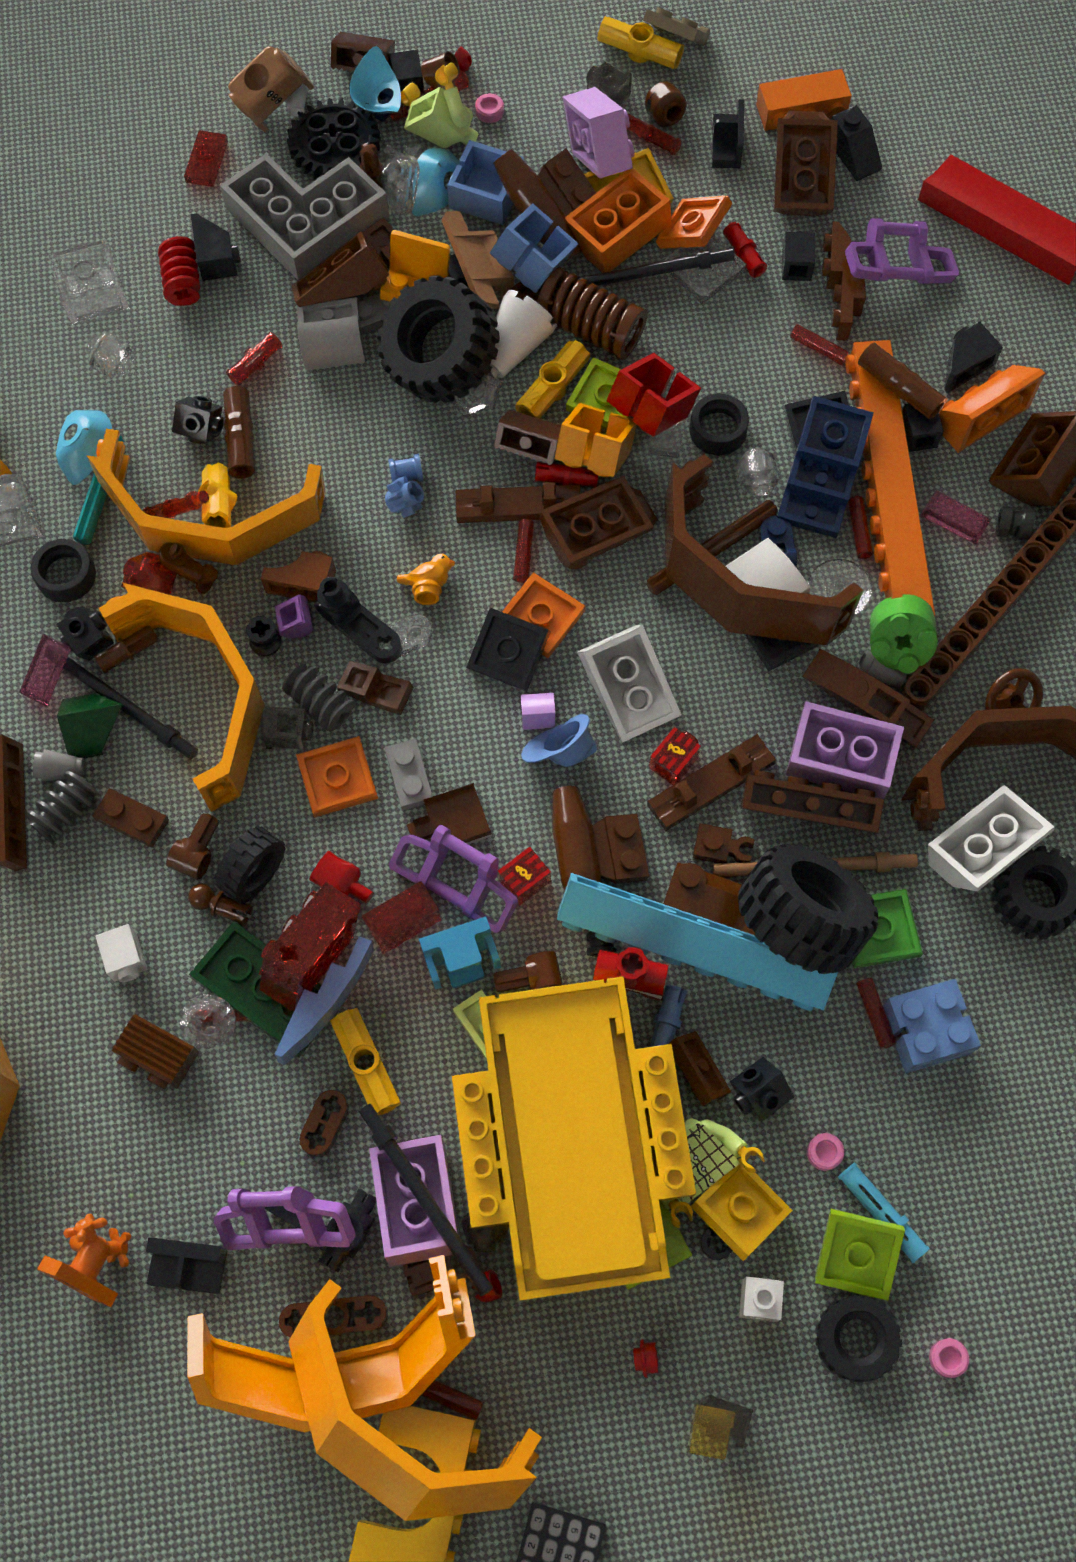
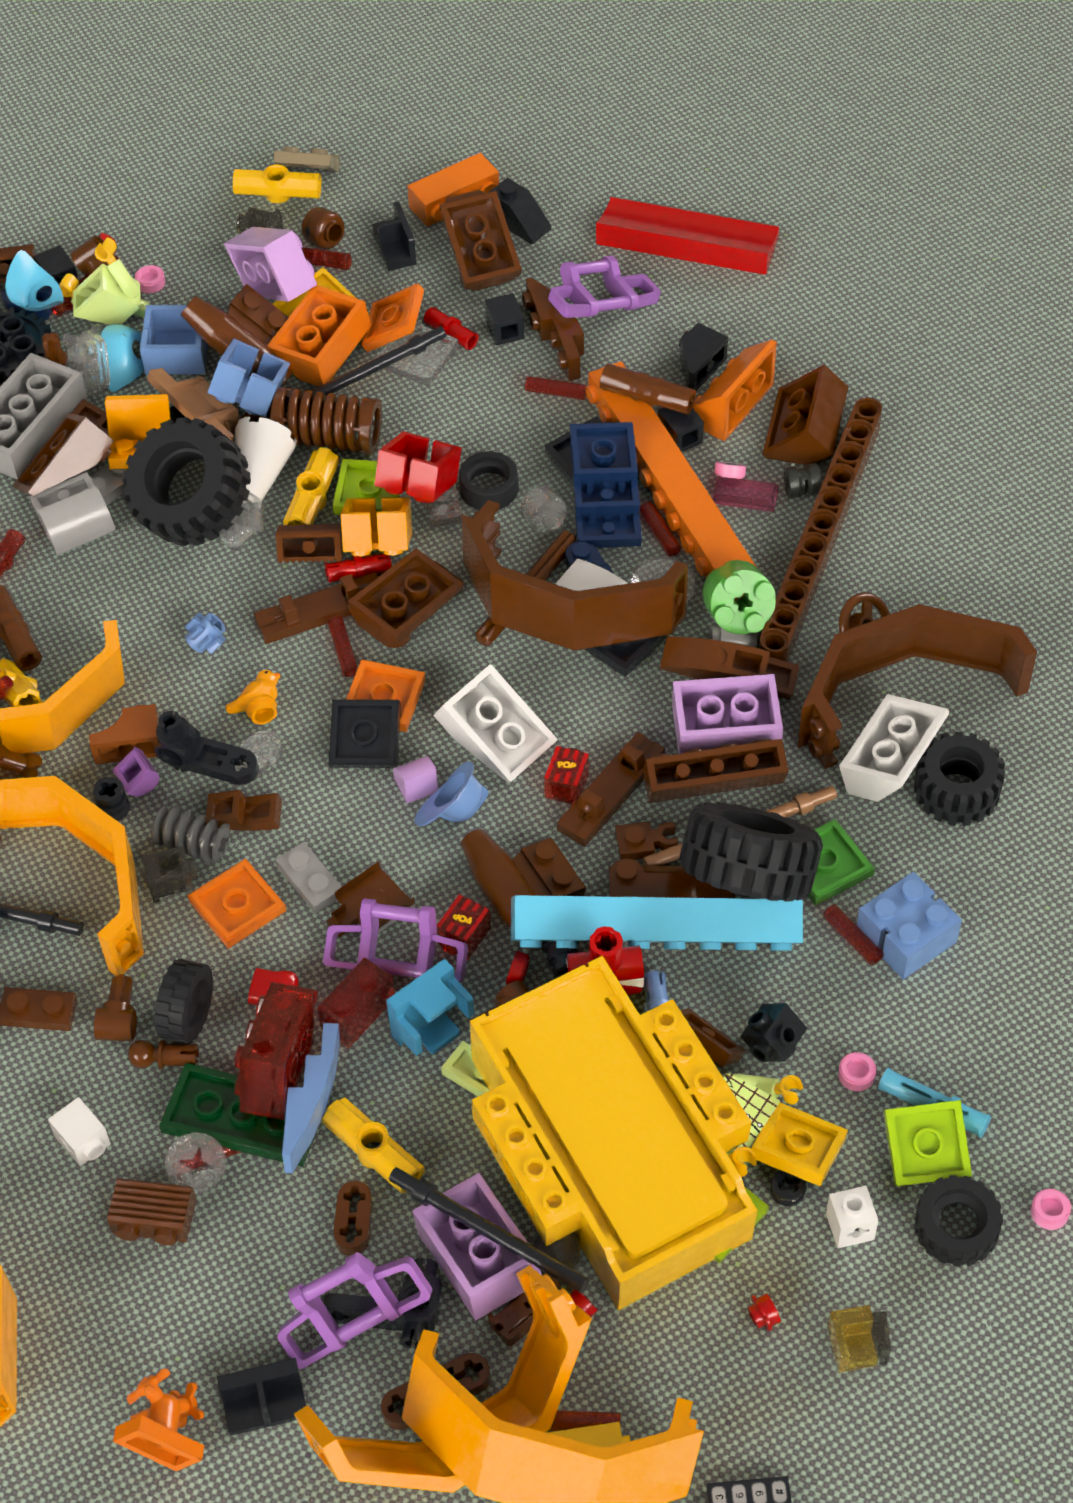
camera: 20 degrees left, 15 degrees down
(407, 467) = (201, 604): medium blue bush -> none
(556, 938) = (518, 967): none -> red tile
(950, 488) = (730, 470): none -> bright pink tile

